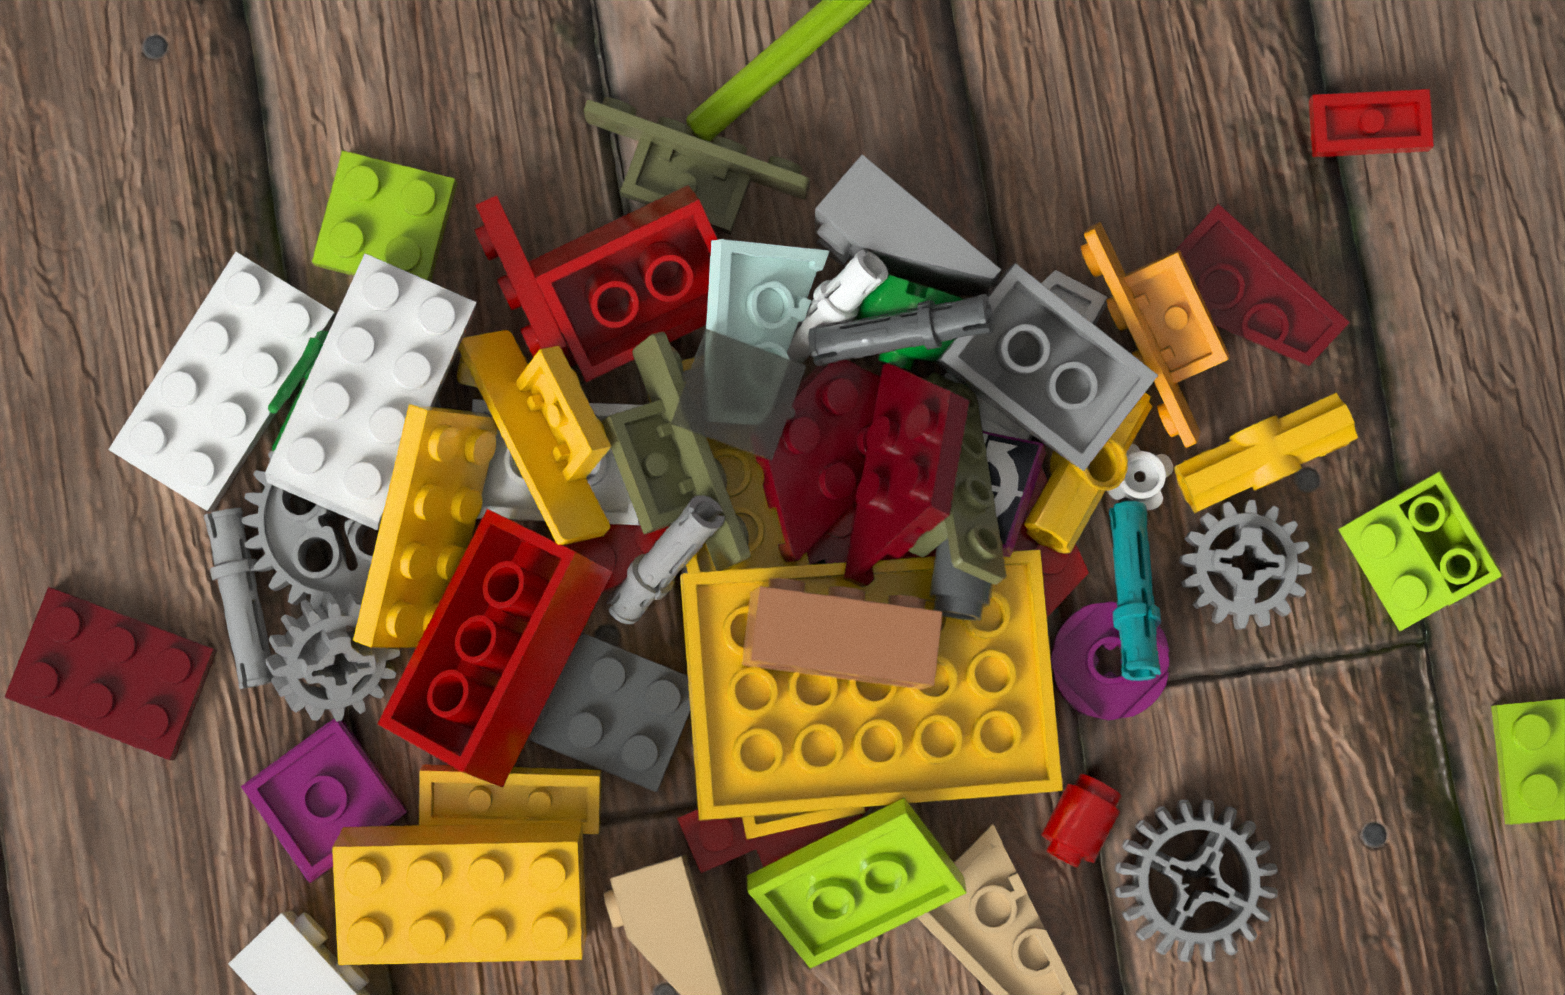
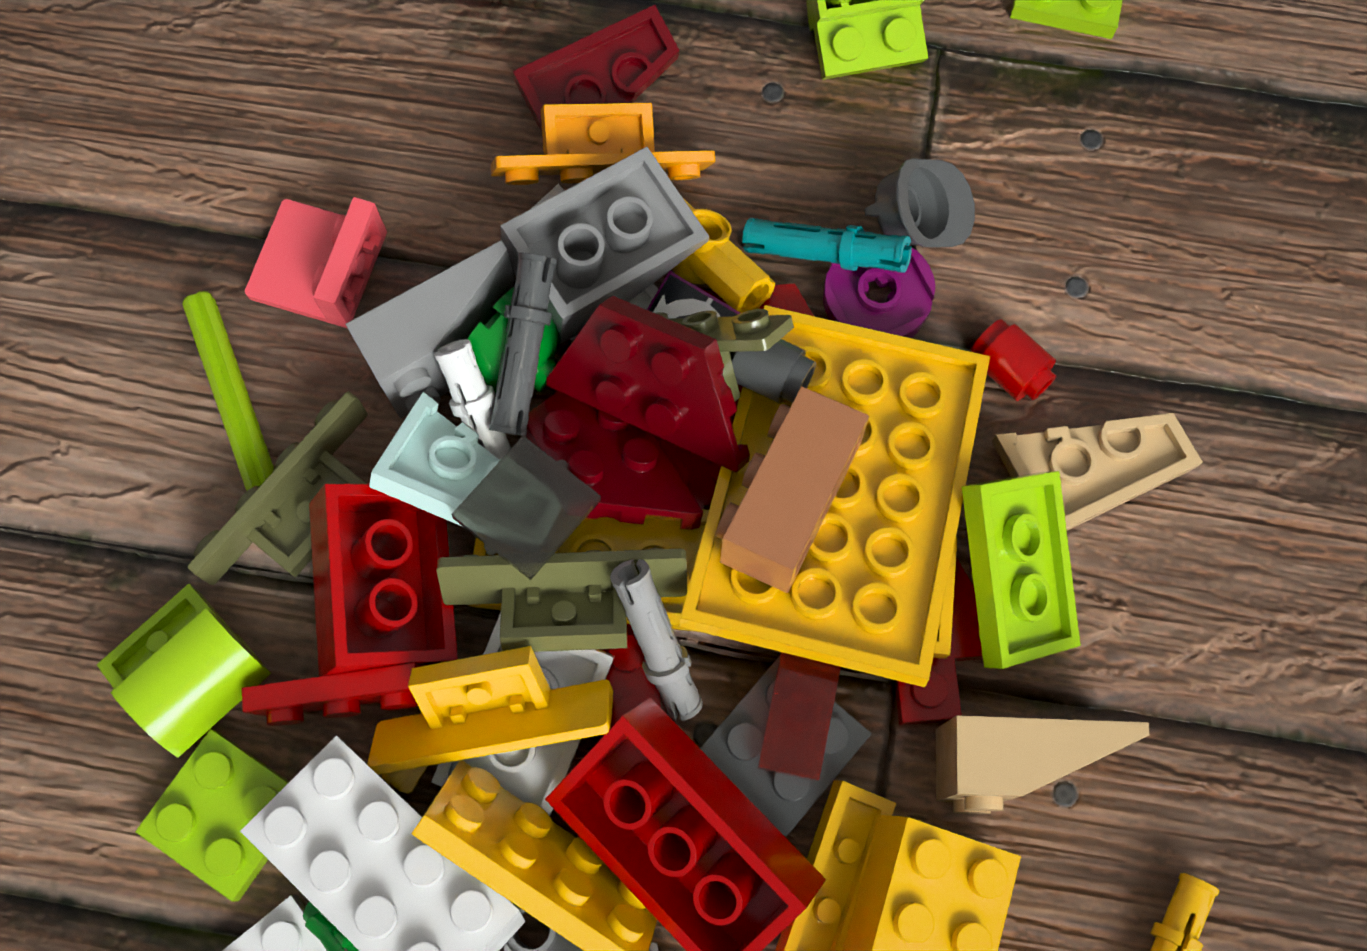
camera: 75 degrees left, 10 degrees down
(497, 130) = (181, 671): none -> lime brick
(638, 717) = (799, 717): none -> clear red plate
(943, 86) = (318, 260): none -> coral bracket
(1155, 470) = (731, 203): white plate -> none
(1182, 905) = (1073, 252): light grey gear -> none
(1218, 680) = (925, 202): none -> dark grey piece
(1249, 538) = (813, 137): light grey gear -> none
(1265, 452) = (741, 109): yellow piece -> none

